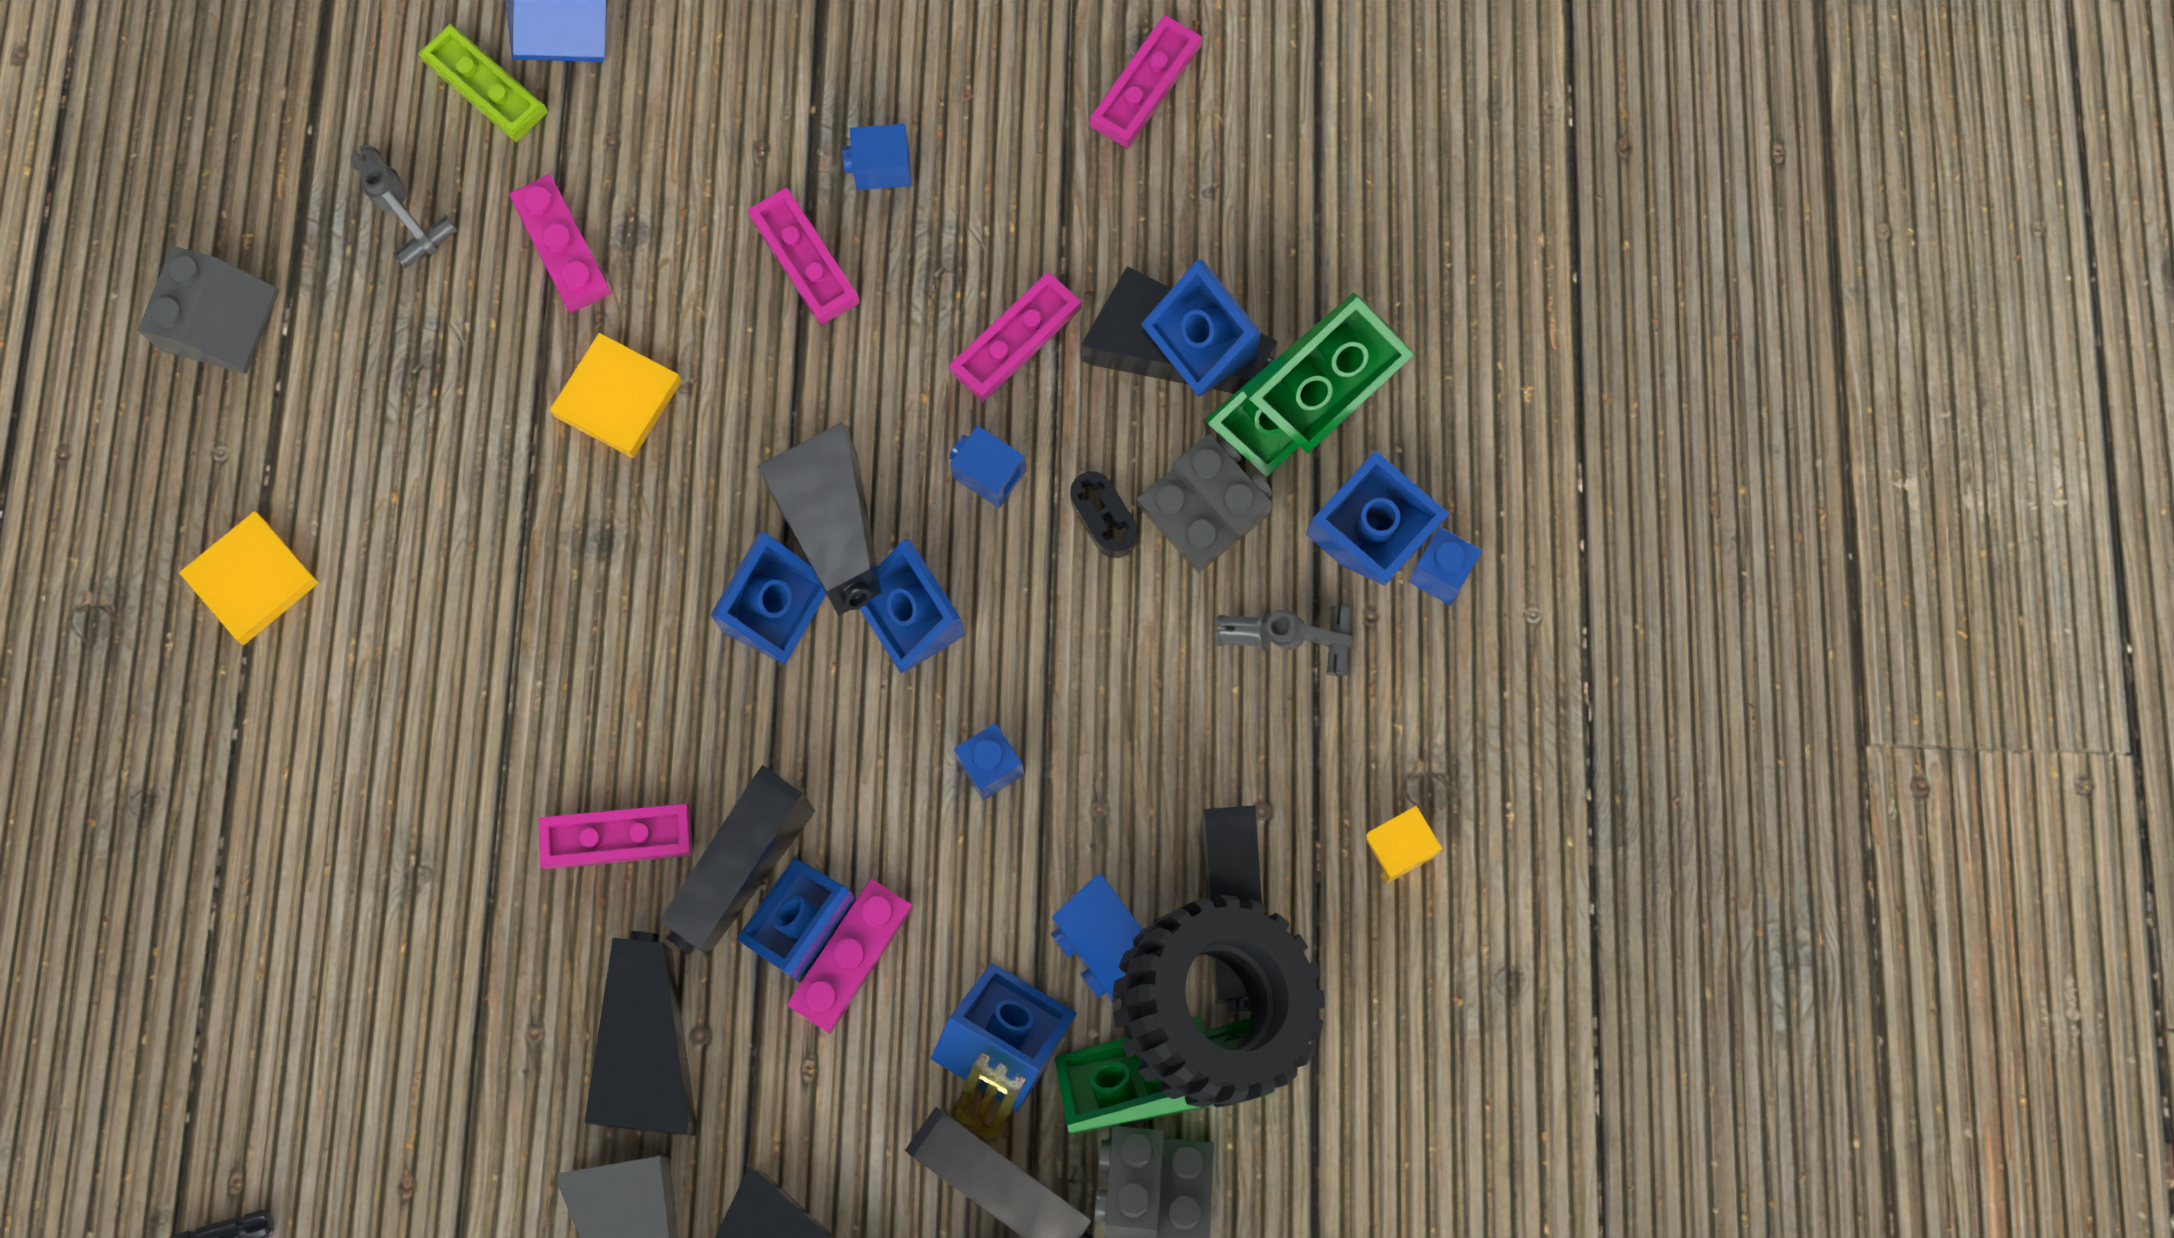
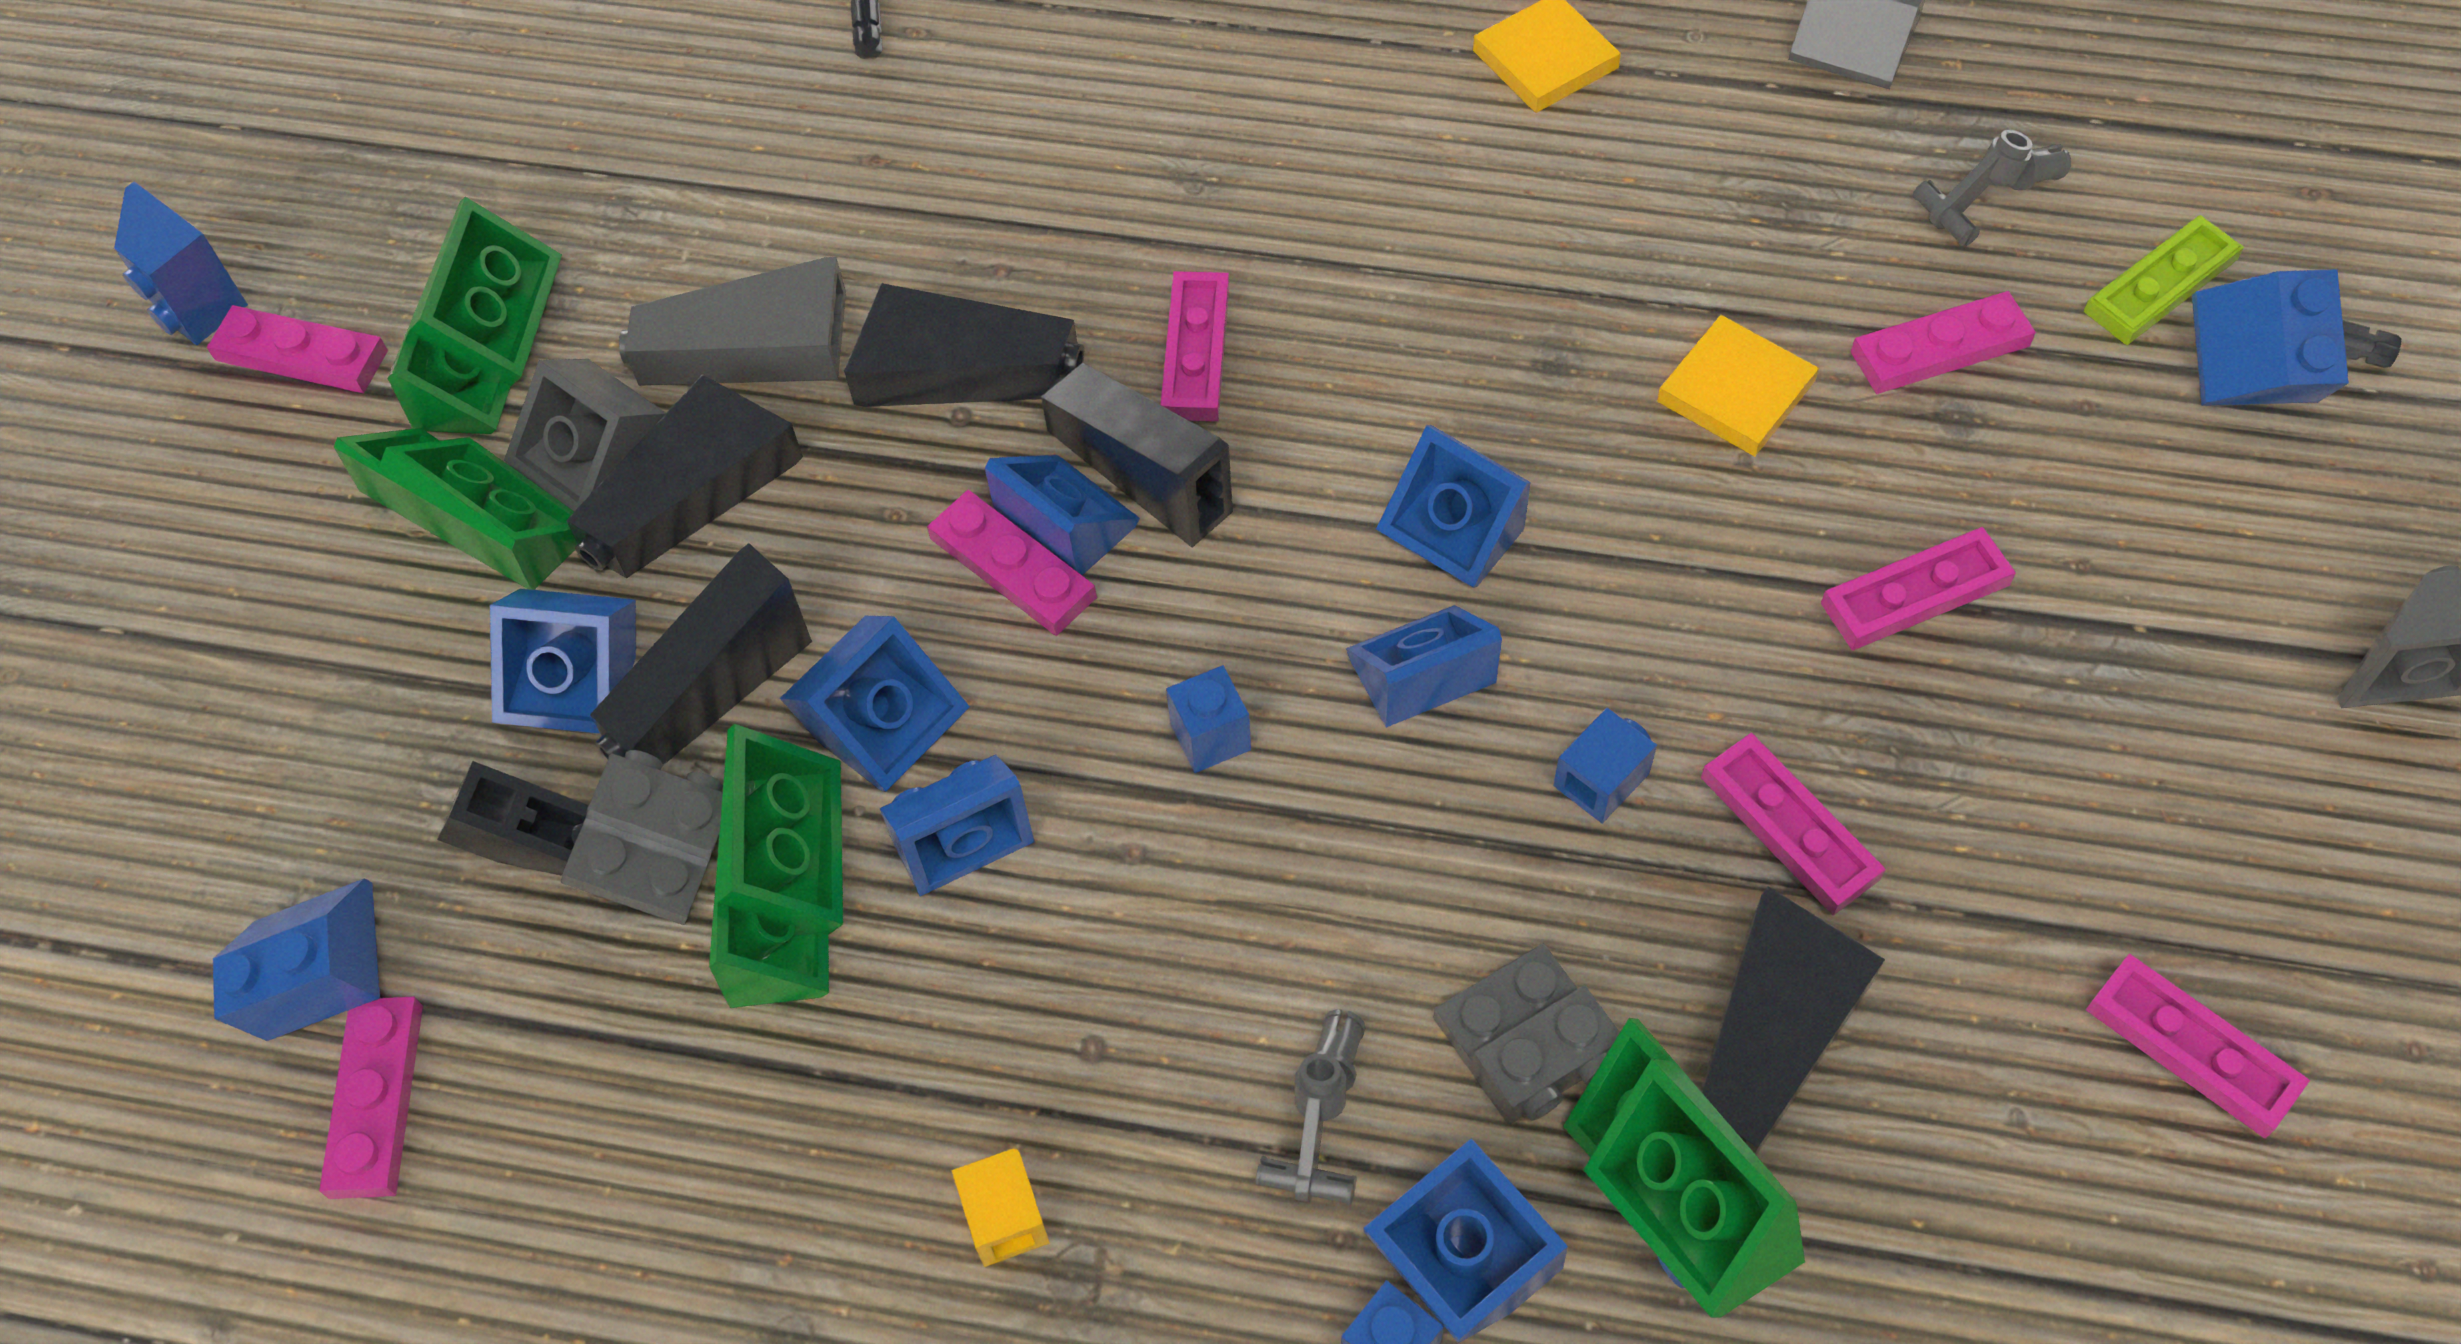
camera: 100 degrees right, 15 degrees down
(826, 509) = (1548, 567): black slope -> none
(878, 157) = (2063, 686): blue brick -> none
(996, 1081) = (799, 661): clear yellow tile -> none
(1095, 520) = (1521, 890): black beam -> none
(1203, 330) = (1773, 1033): blue slope -> none
(1230, 870) = (966, 972): black slope -> none
(1278, 989) = (726, 861): black tyre -> none

